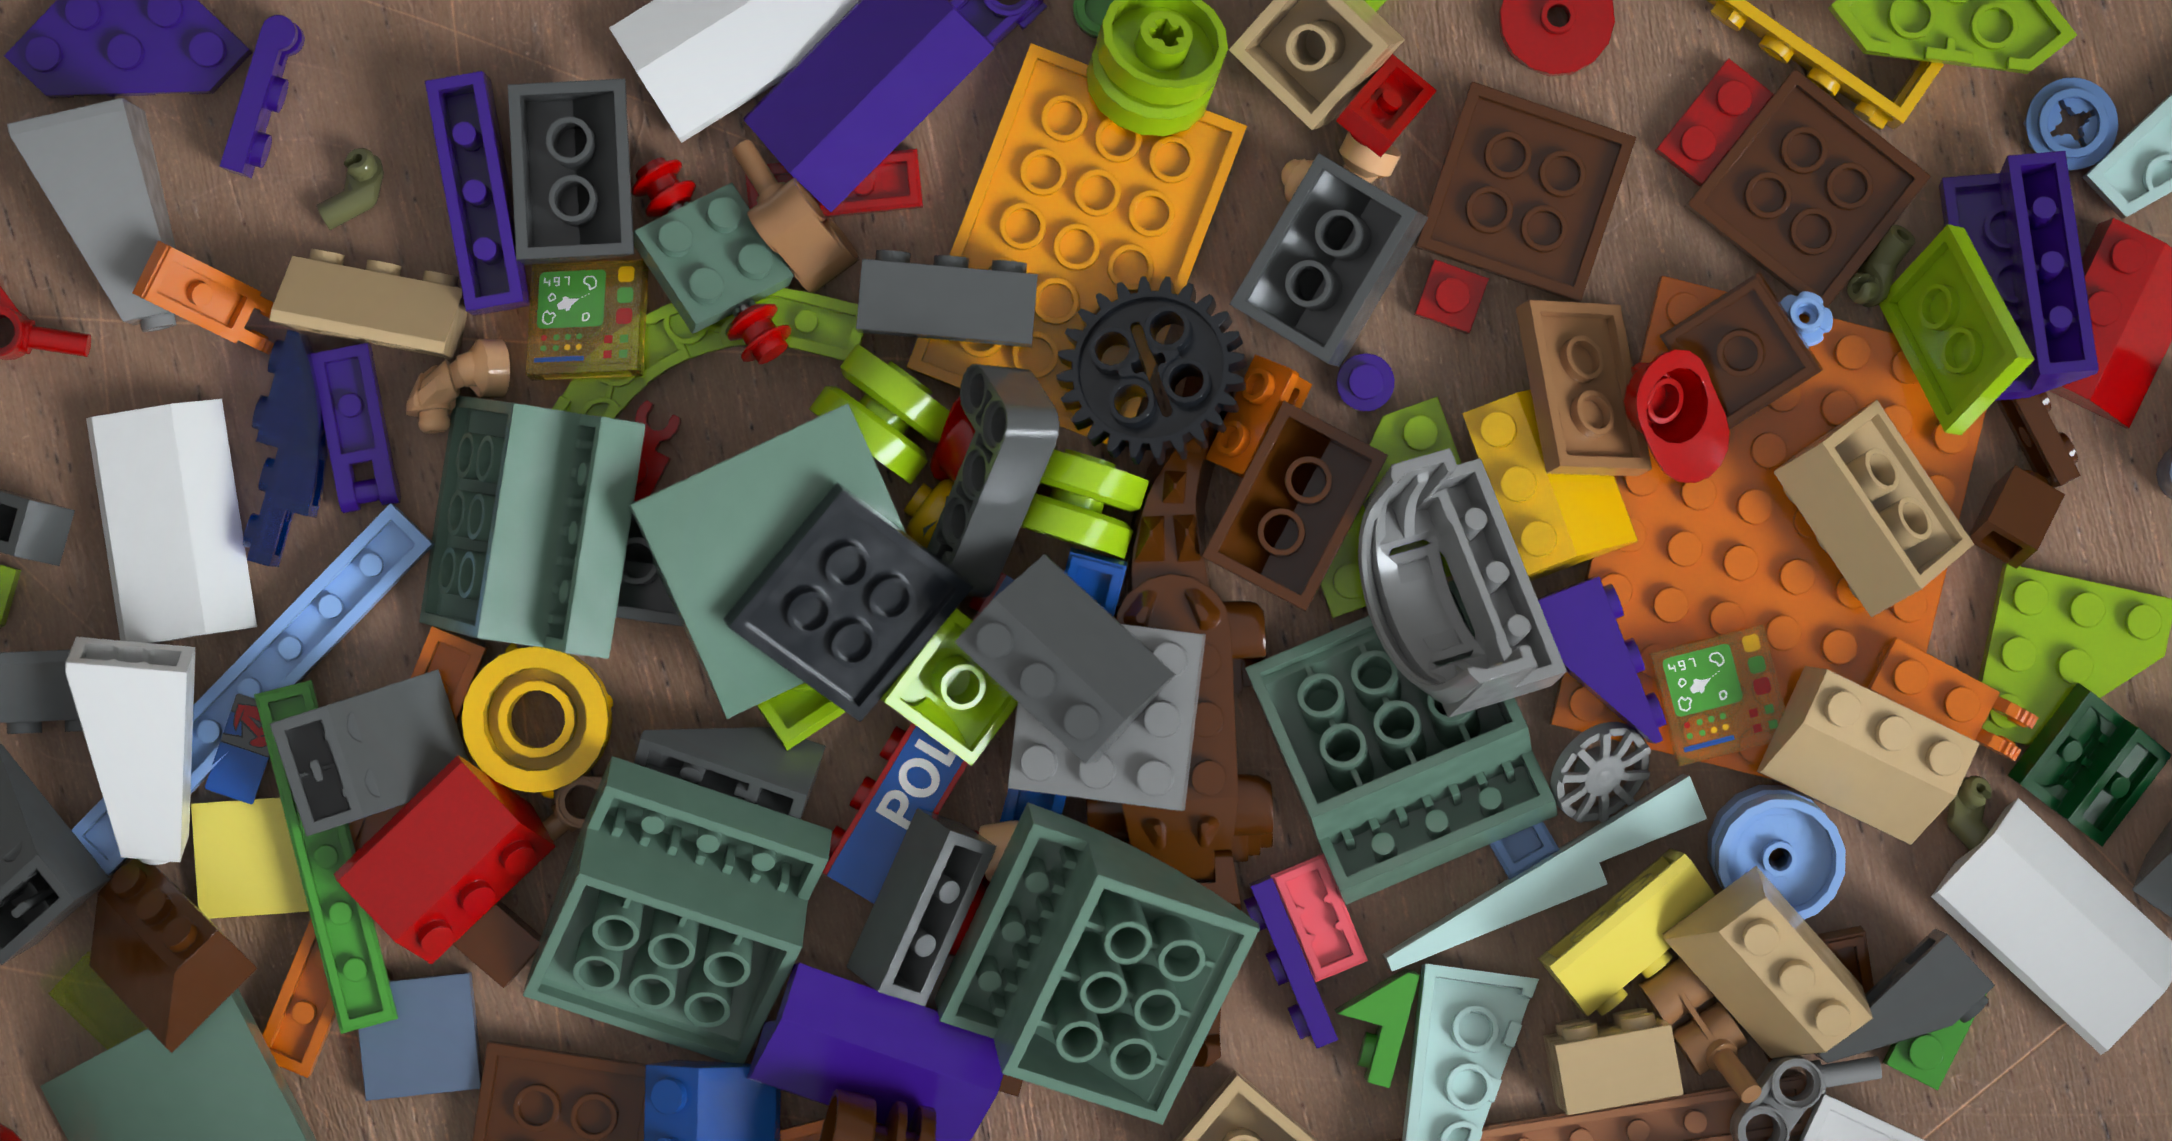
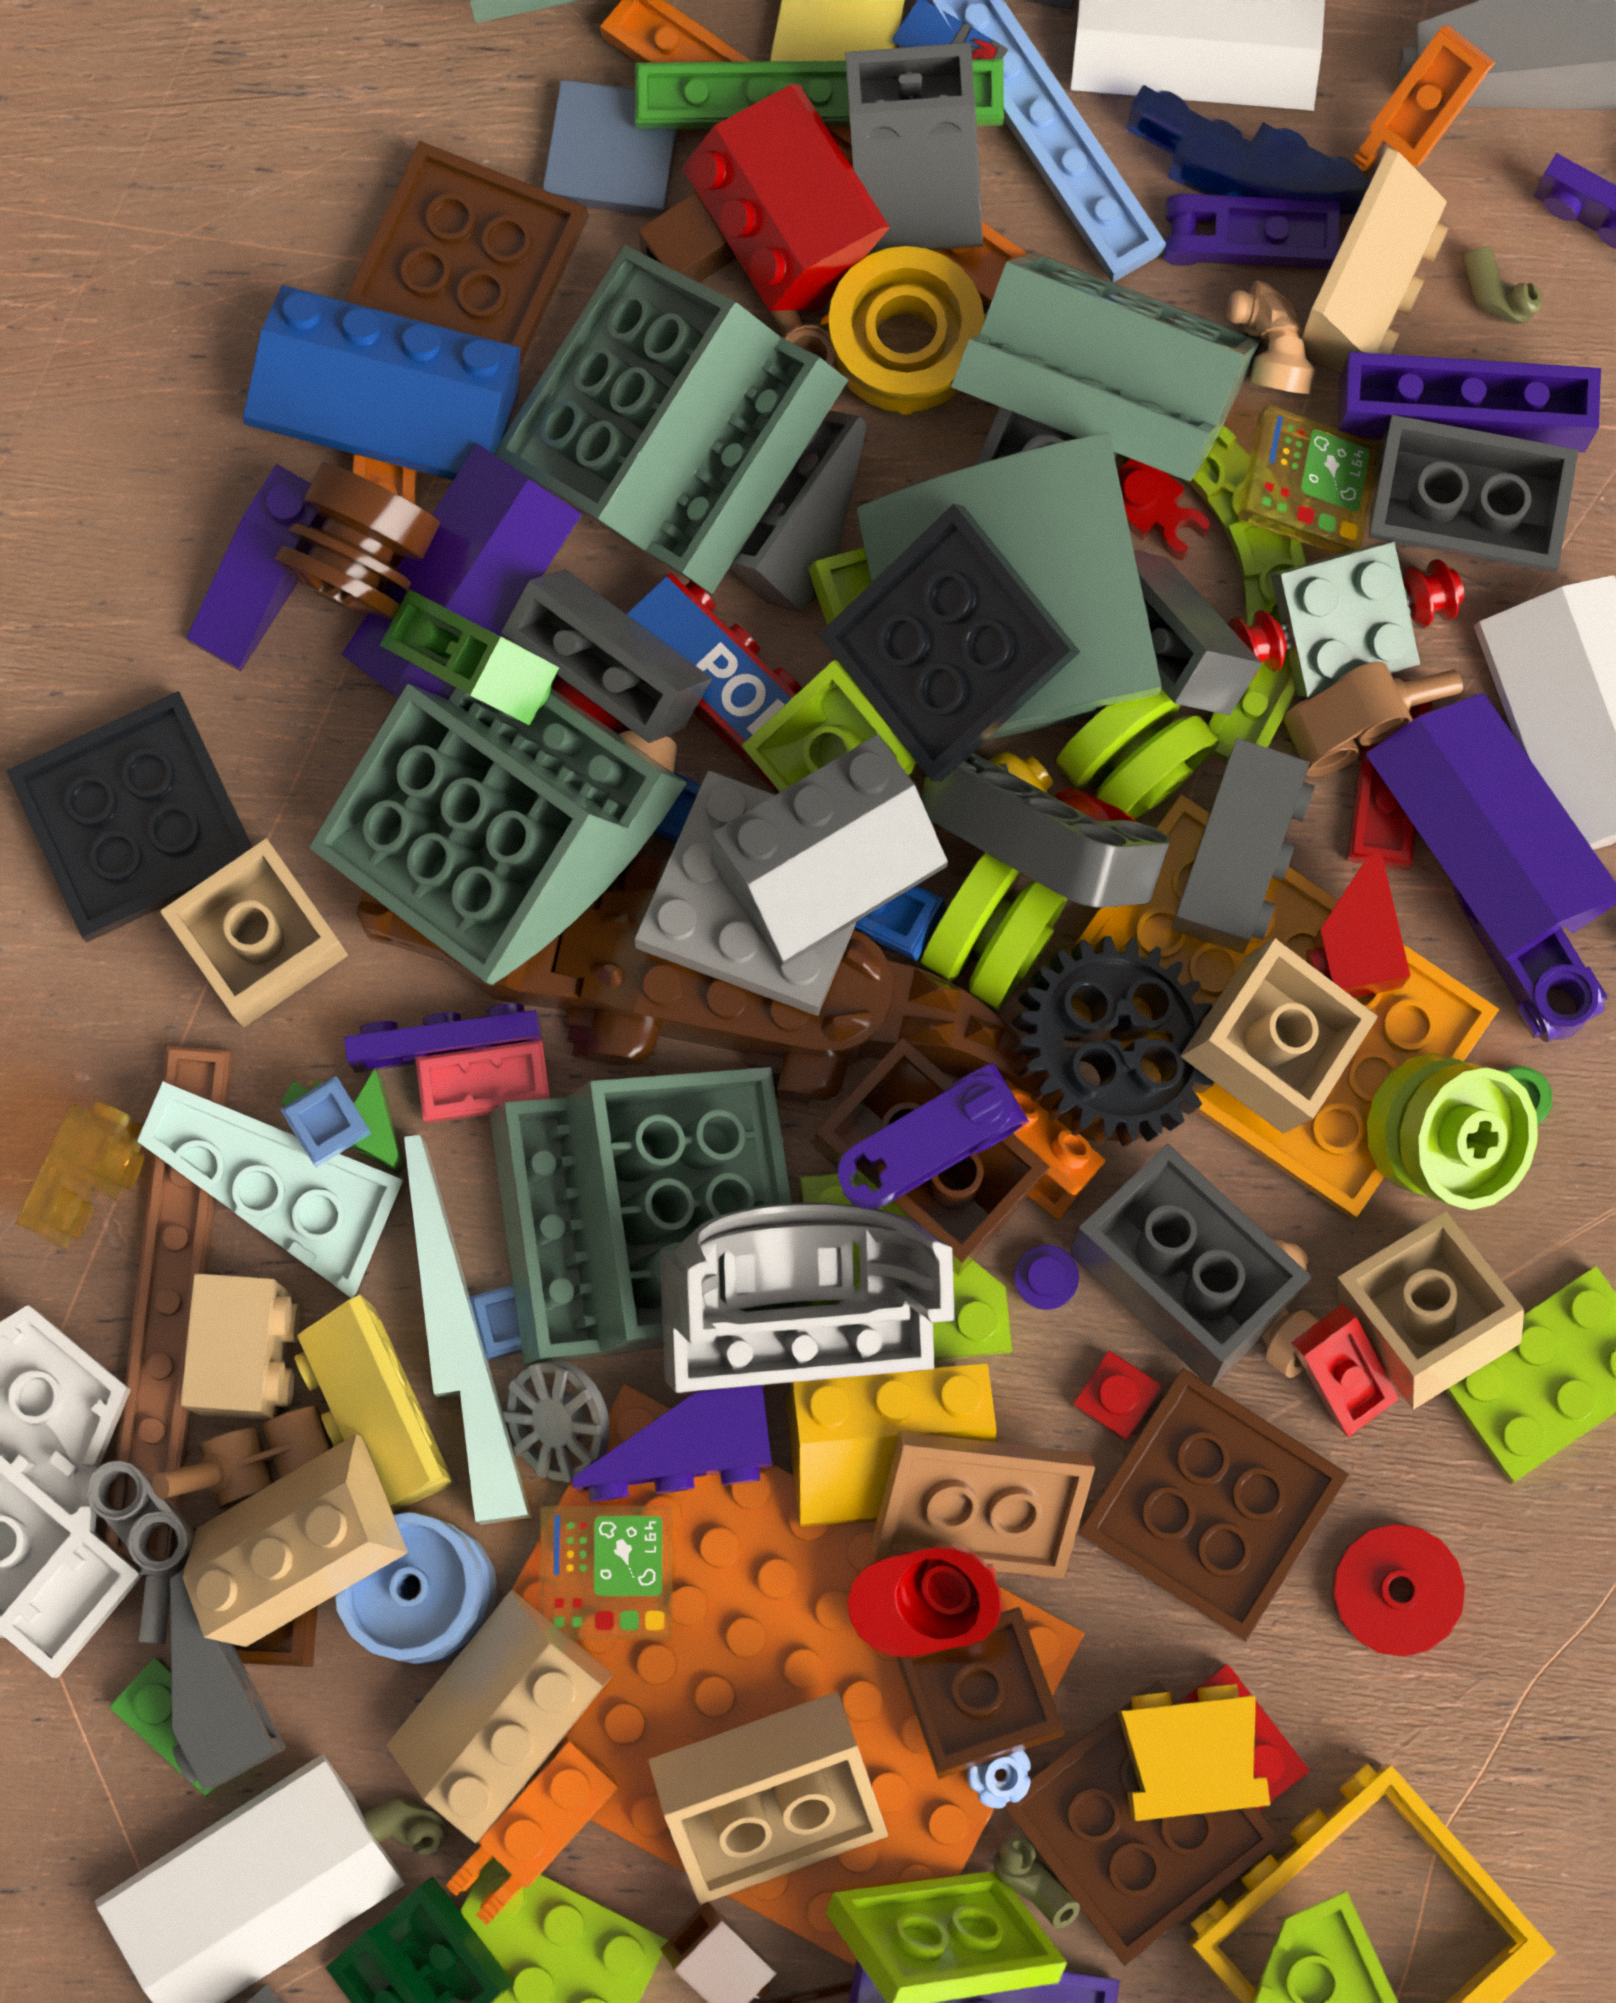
camera: 105 degrees right, 10 degrees down
(781, 389) = (1194, 648): none -> dark grey brick
(962, 1026) = (470, 657): none -> bright green slope
(1005, 179) = (1361, 937): none -> red slope
(1116, 228) = (1279, 1036): none -> tan brick
(1291, 504) = (933, 1137): none -> dark purple piece
(1397, 1042) = (326, 1121): none -> medium blue tile
(1747, 159) = (1192, 1754): none -> yellow hips

